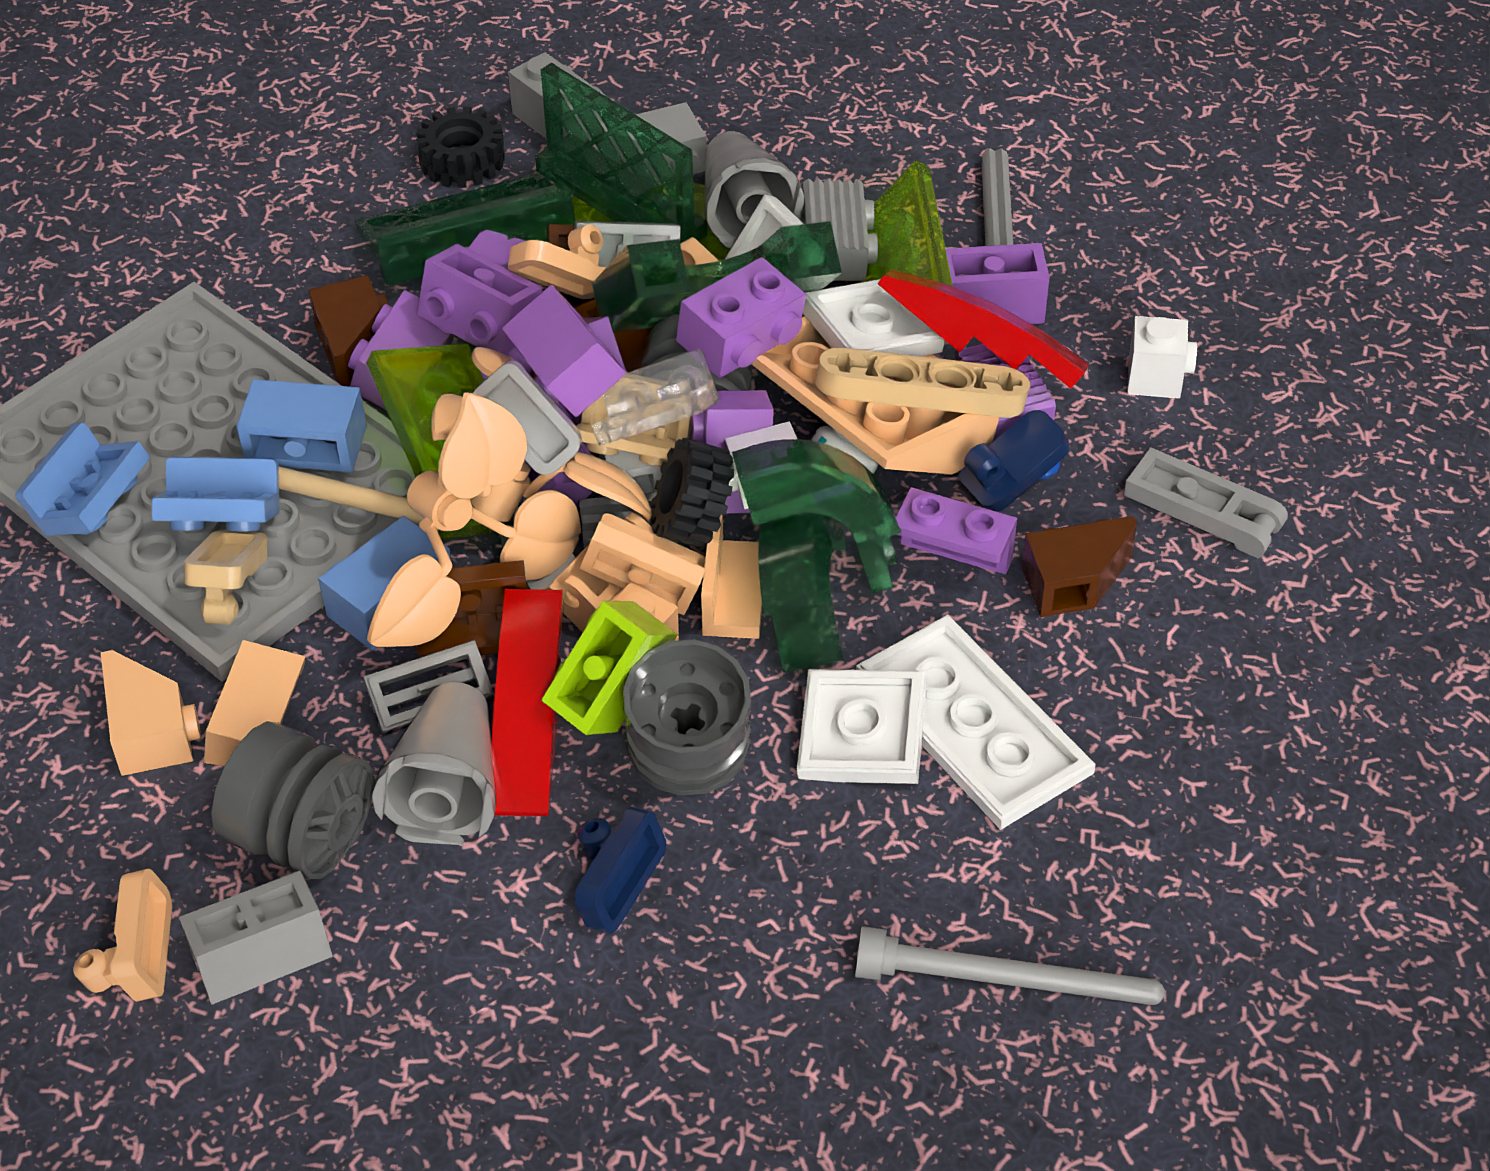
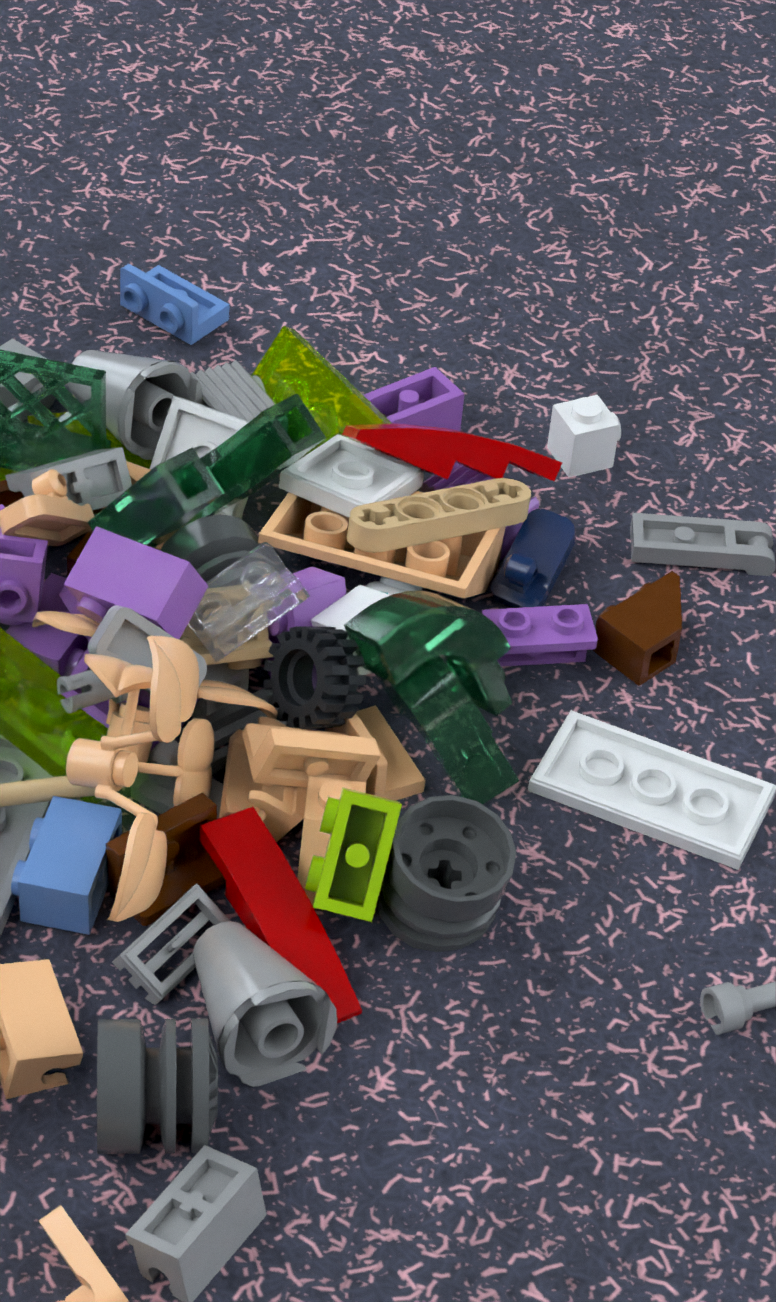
camera: 35 degrees left, 5 degrees down
(621, 866) = (466, 1009): dark blue piece -> none
(741, 317) = (261, 504): medium lavender brick -> none
(862, 726) = (575, 827): white tile -> none
(866, 113) = (171, 302): none -> medium blue bracket
(996, 198) = (341, 347): light grey axle -> none

